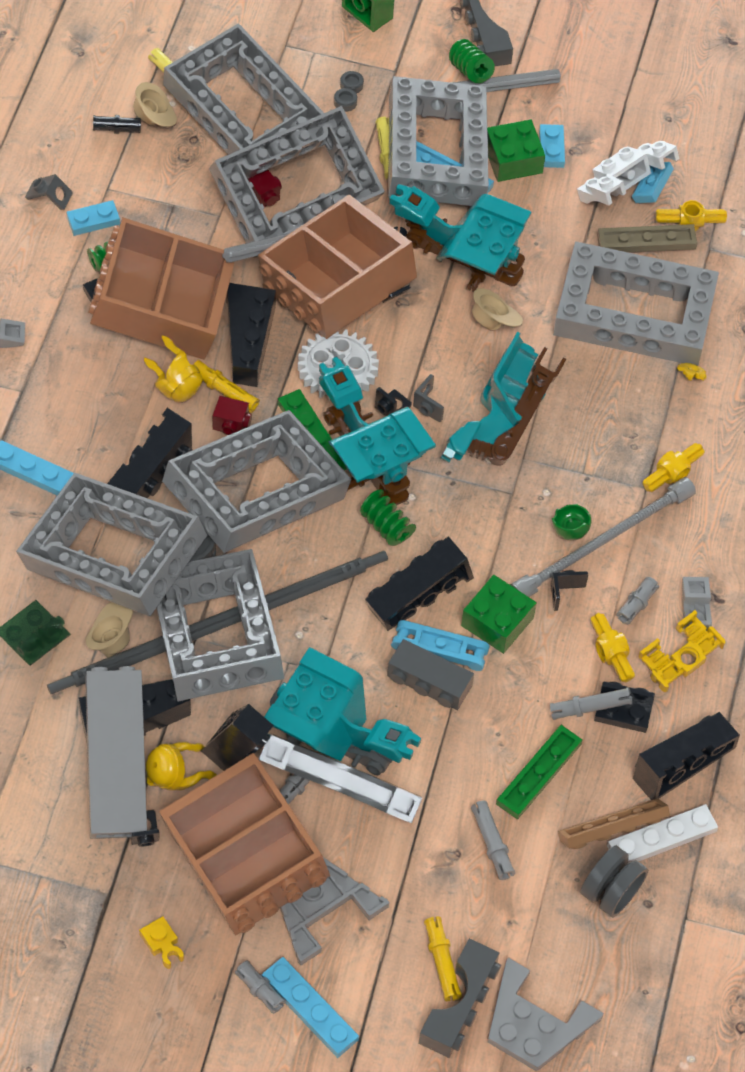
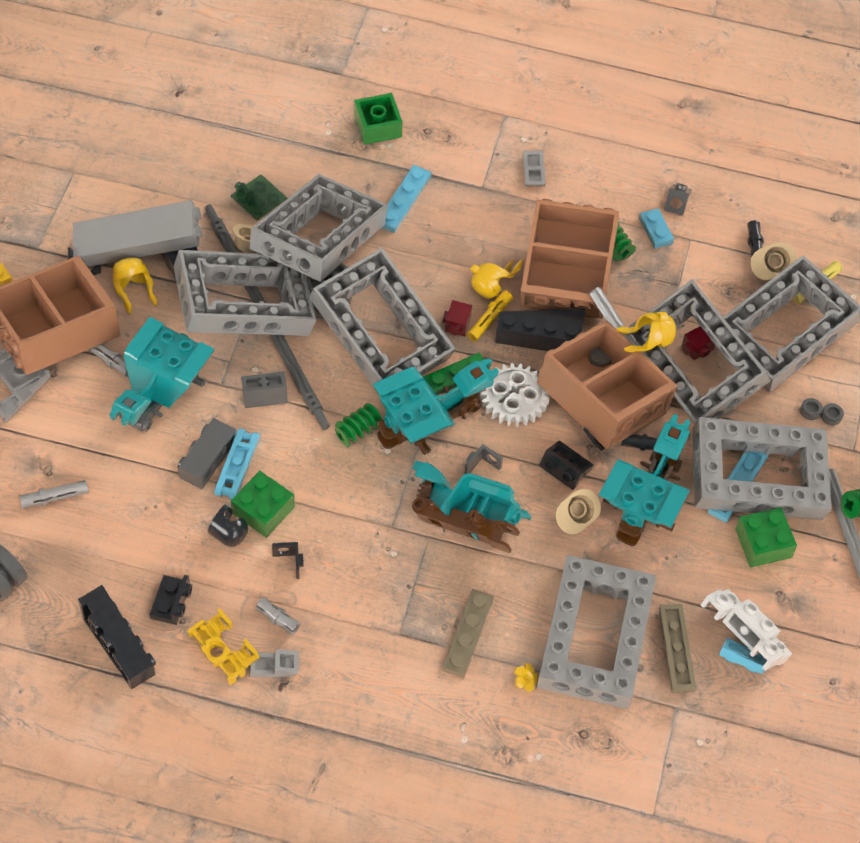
camera: 90 degrees right, 0 degrees up
(148, 463) = (417, 267): black wedge -> none
(238, 737) = (139, 304): black wedge -> none
(278, 199) = (661, 331): none -> yellow hair
(337, 615) = (264, 389): none -> dark grey hinge
(341, 778) = (90, 419): arch -> none
(386, 403) = (473, 430): black bracket -> none
(419, 583) = (292, 447): black wedge -> none
(429, 321) = (565, 464): none -> black bracket
(536, 642) = (226, 531): none -> black helmet
(539, 772) = (113, 530): green plate -> none
(553, 145) = (781, 574): medium azure plate -> none
(572, 522) = (355, 564): green hair -> none
(590, 703) = (170, 560): light grey pin -> none
(612, 647) = (229, 591): yellow axle -> none
(621, 821) = (59, 582): medium nougat plate -> none
(642, 423) = (468, 633): none -> dark tan plate
(666, 834) = (48, 622): white plate -> none
(673, 467) = (416, 652): yellow axle -> none
(677, 493) = (390, 655): light grey hose -> none
(691, 213) = (707, 697): yellow axle -> none

